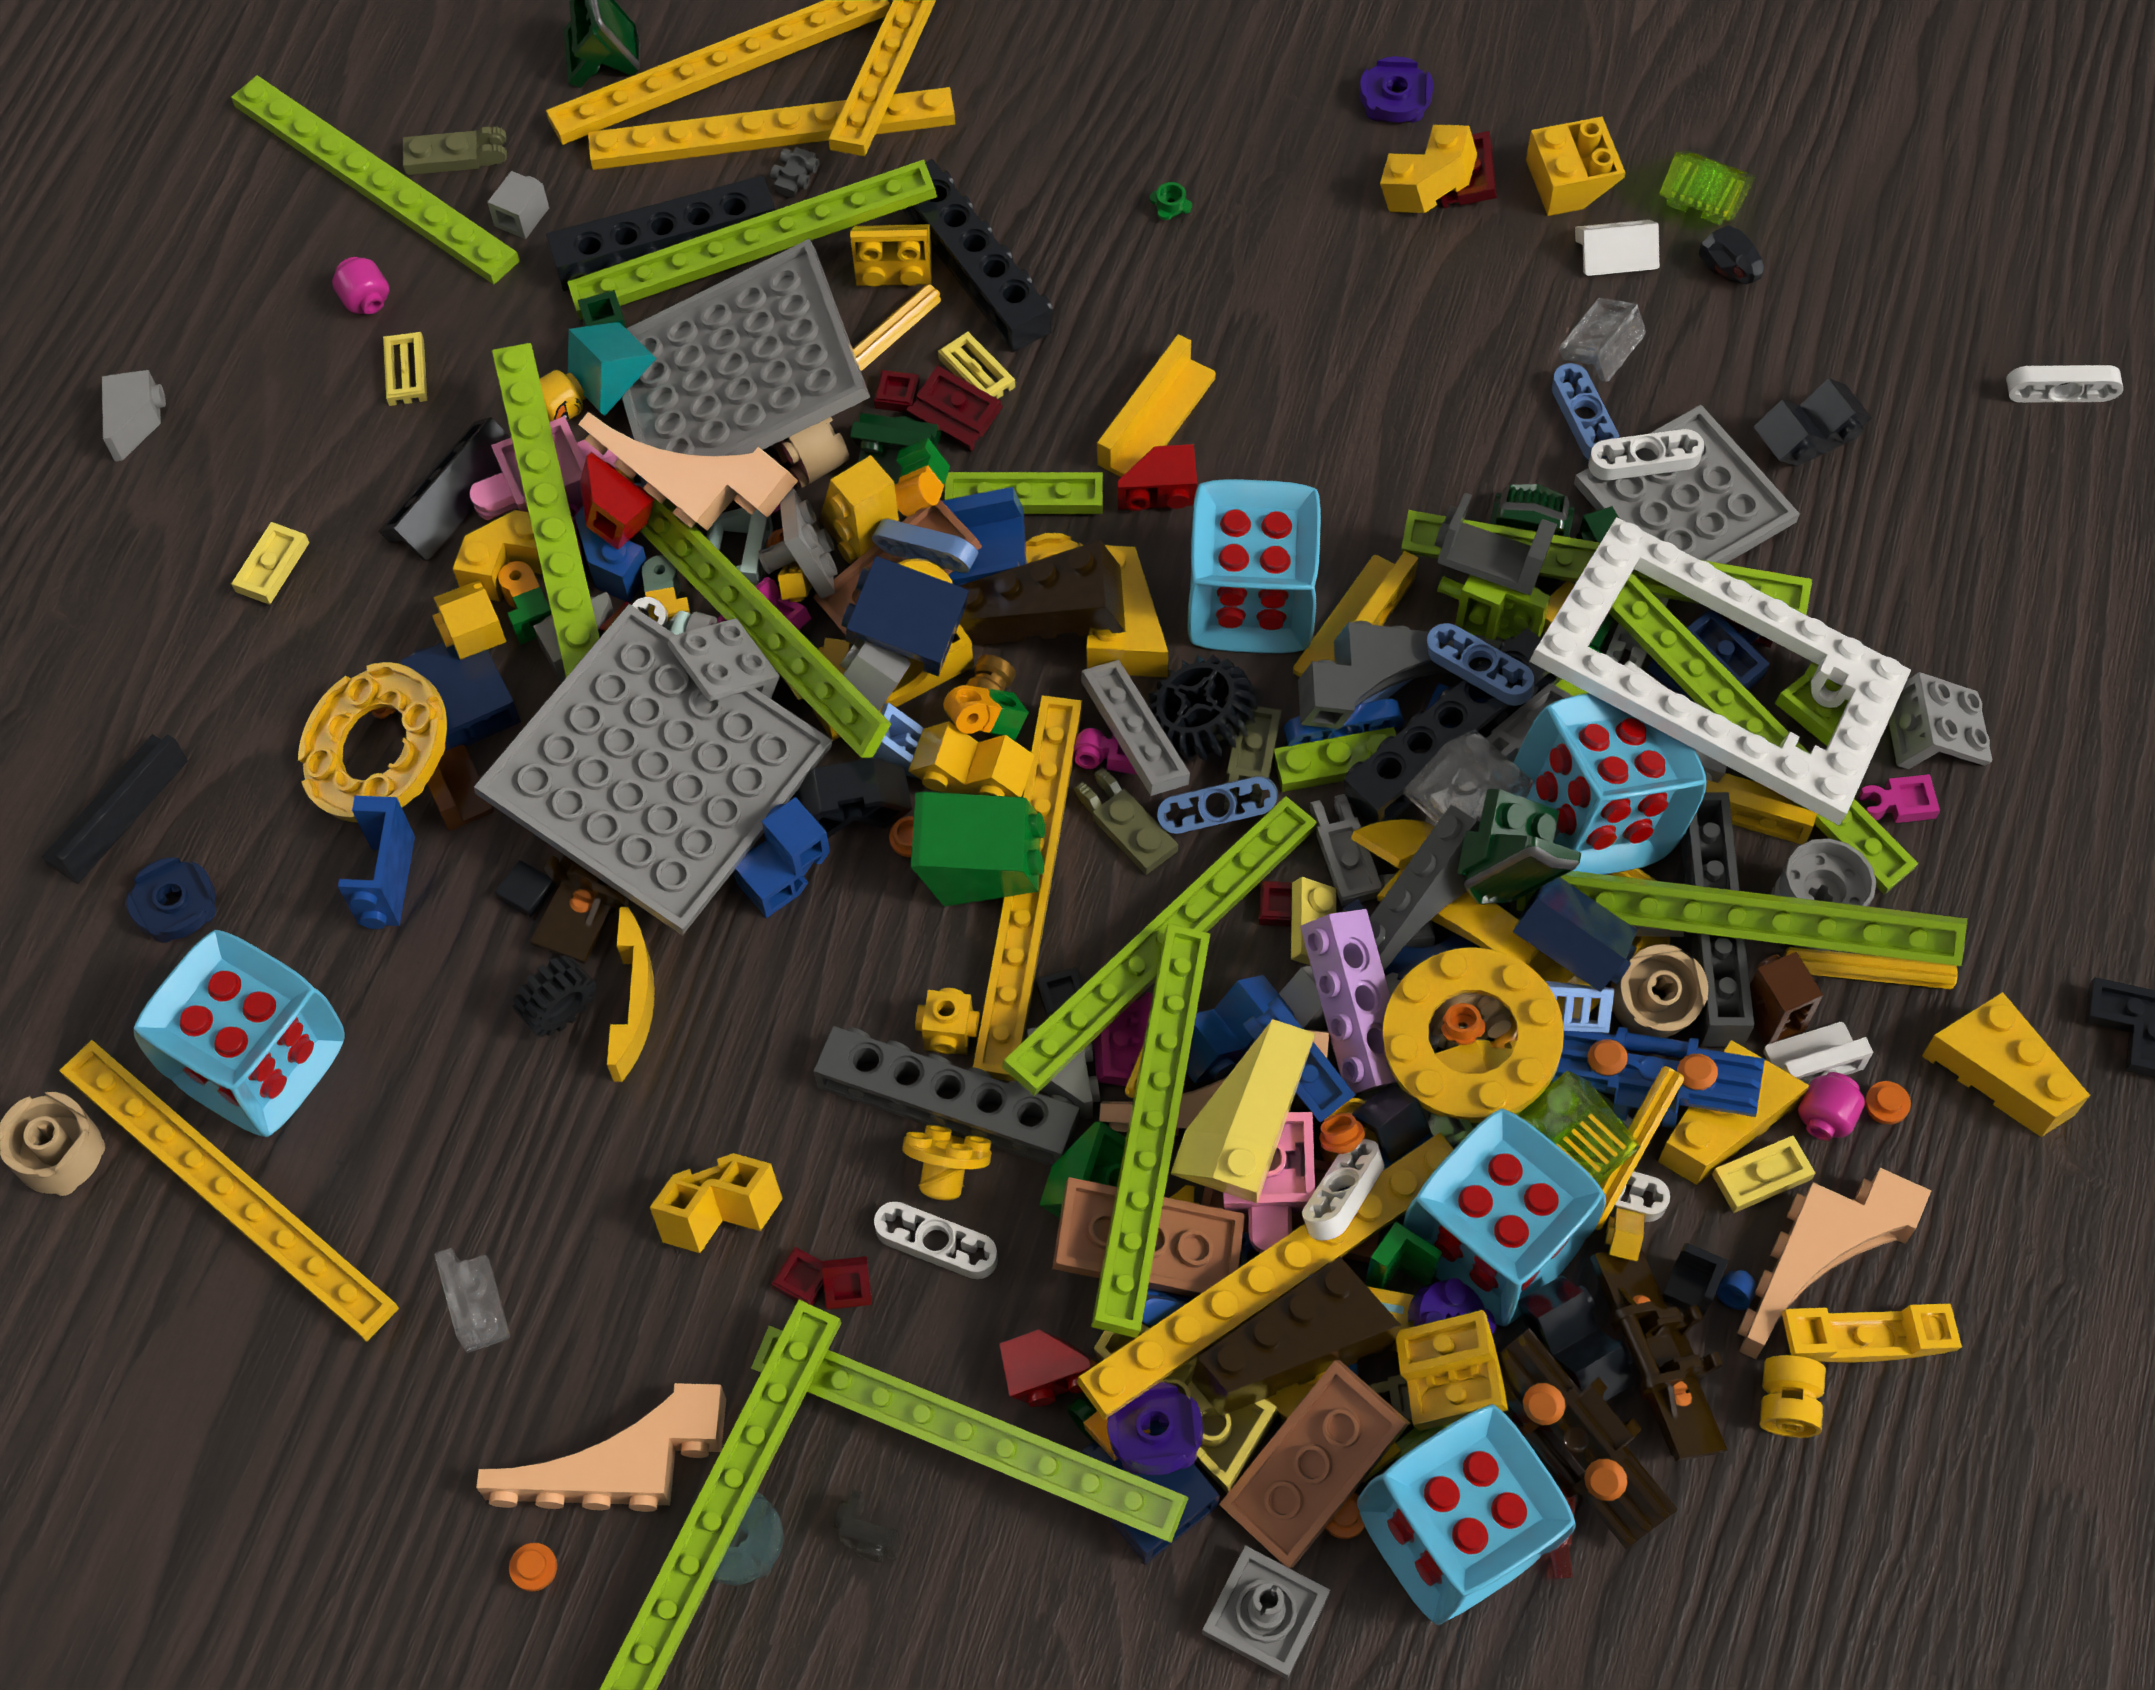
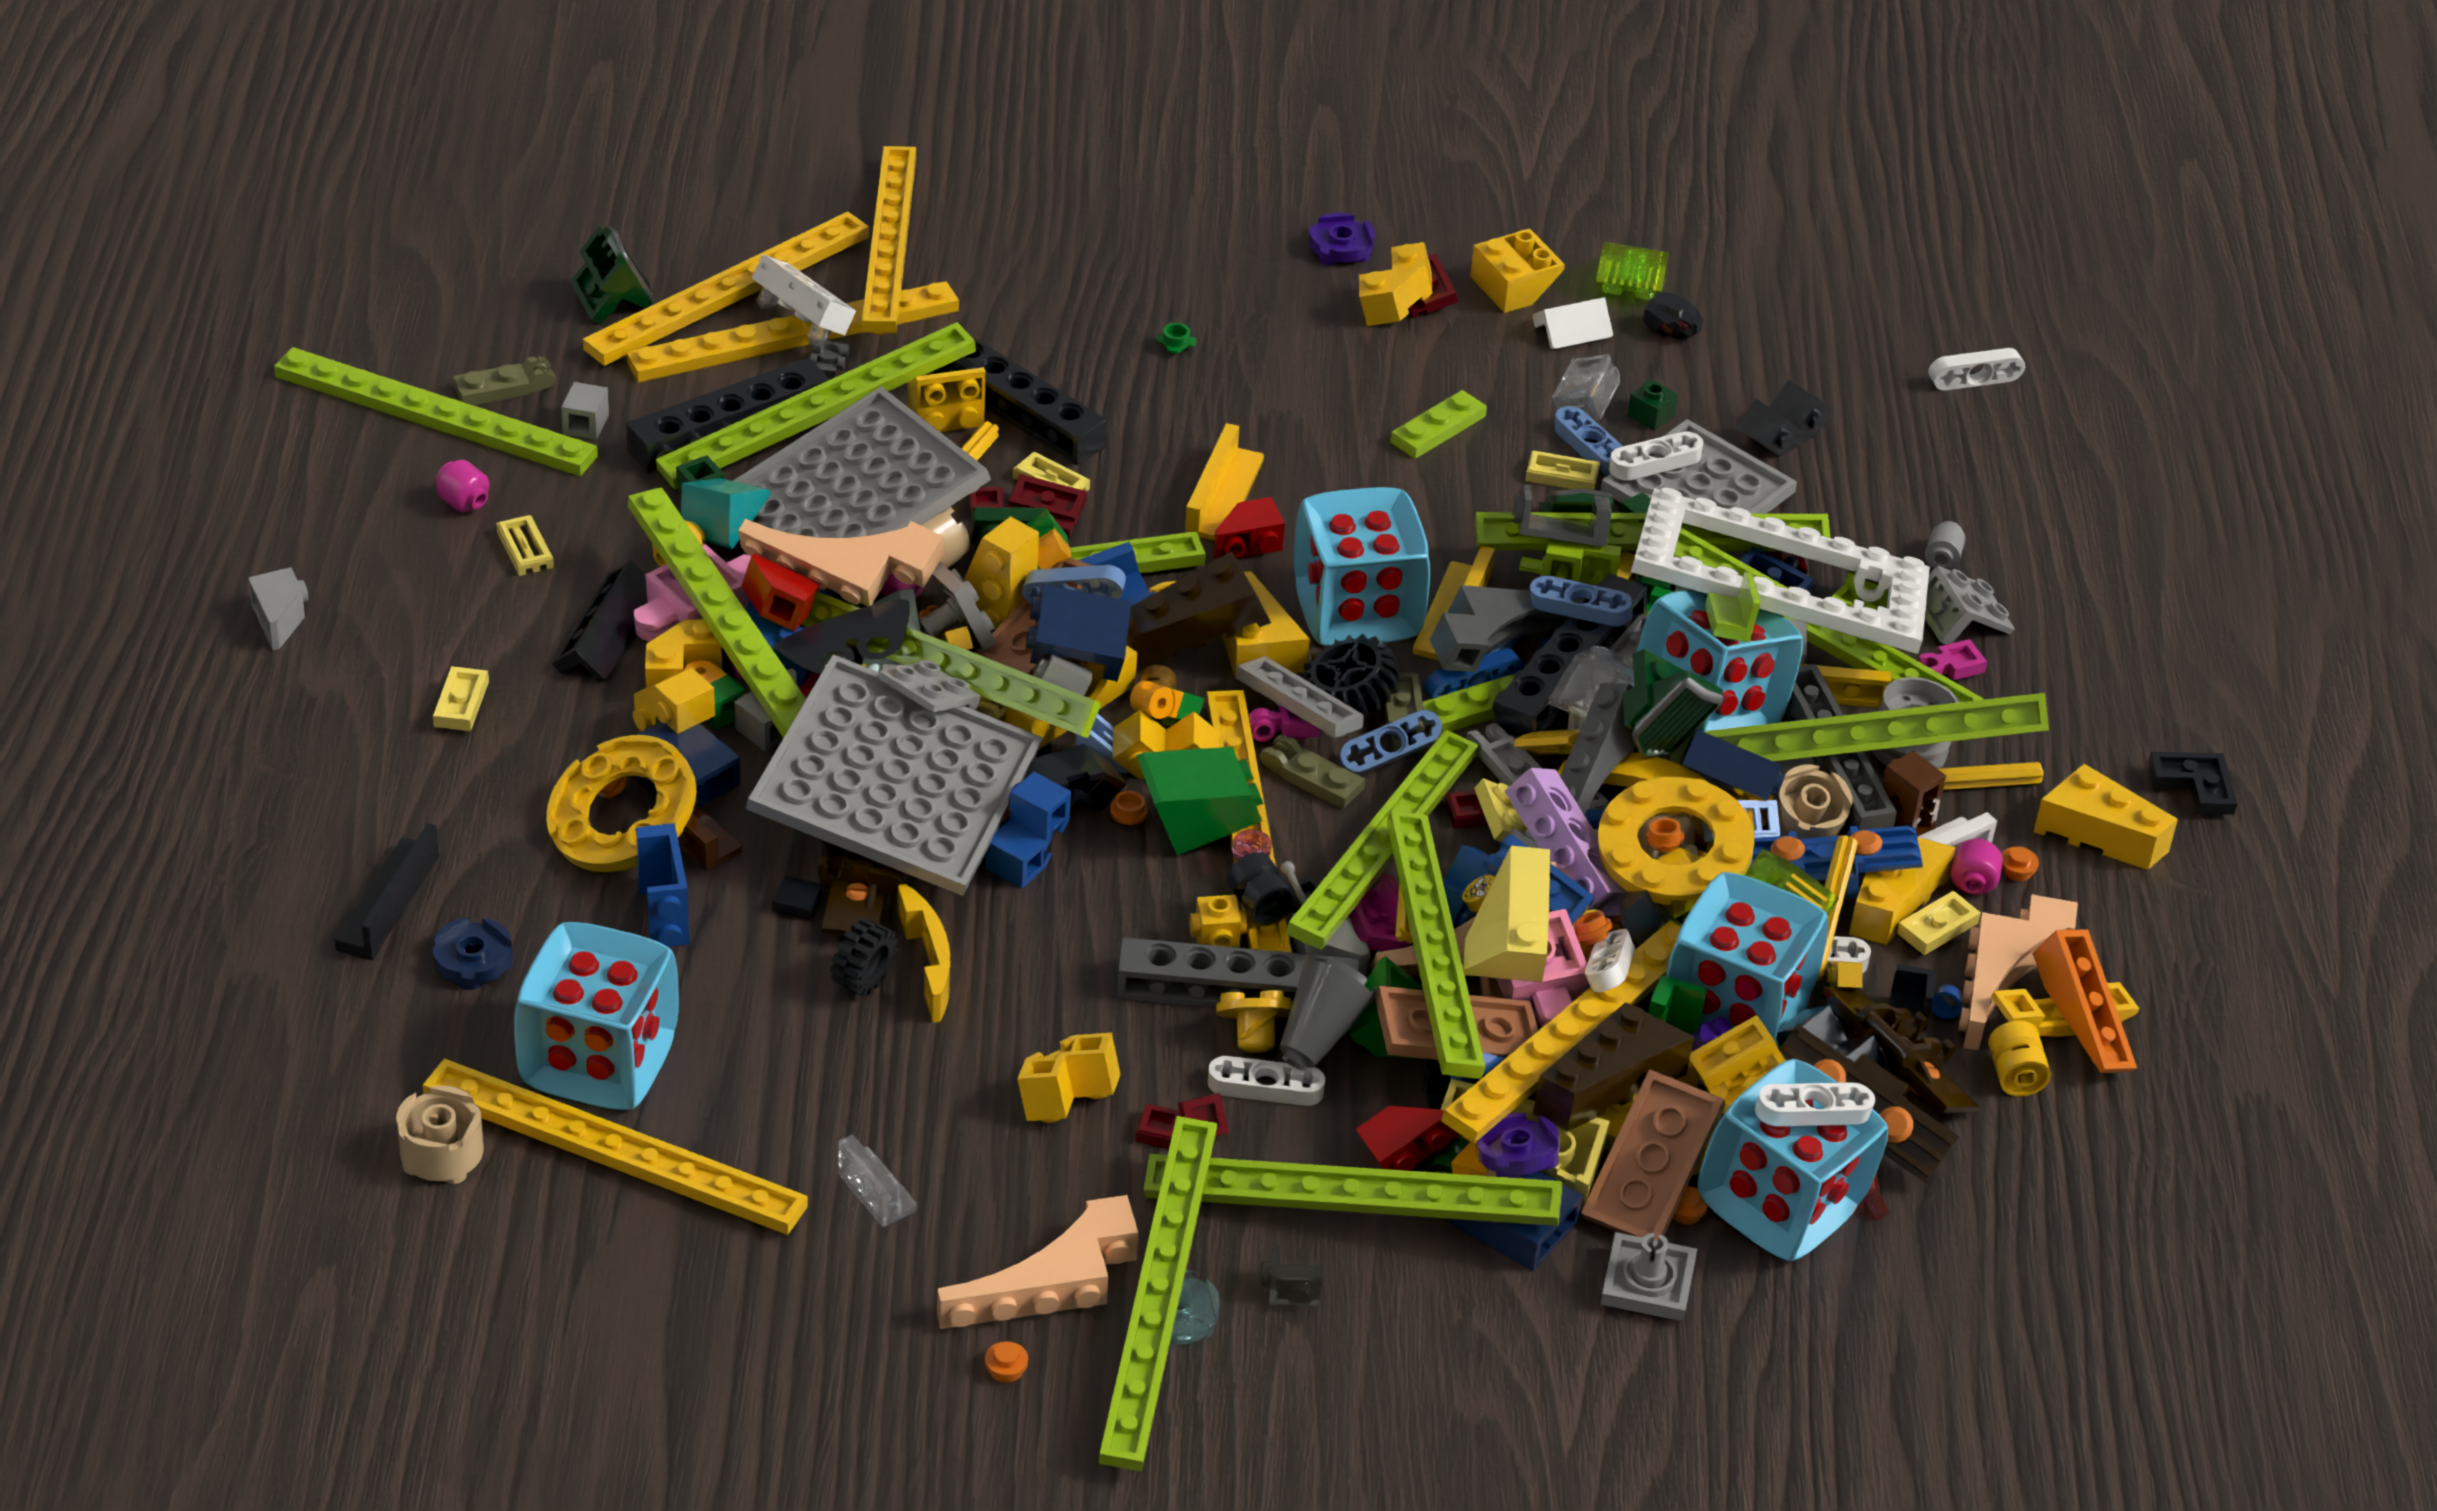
camera: 20 degrees left, 20 degrees down
(684, 558) = (878, 620): none -> black piece
(782, 96) = (799, 293): none -> white piece
(1000, 993) = (1261, 889): none -> black wheel
(1007, 1184) = (1323, 1010): none -> dark grey cone
(1016, 924) = (1250, 842): none -> tile
(1051, 956) = (1288, 869): none -> light grey hinge
(1231, 1052) = (1477, 891): none -> yellow tile
(1422, 361) = (1438, 424): none -> lime plate
(1455, 1471) = (1786, 1104): none -> white beam
(1537, 454) = (1562, 471): none -> light yellow tile
(1627, 744) = (1734, 616): none -> lime panel
(1670, 375) = (1652, 404): none -> dark green plate
(1895, 1332) = (2081, 993): none -> orange slope
(1945, 632) = (1945, 545): none -> light grey brick

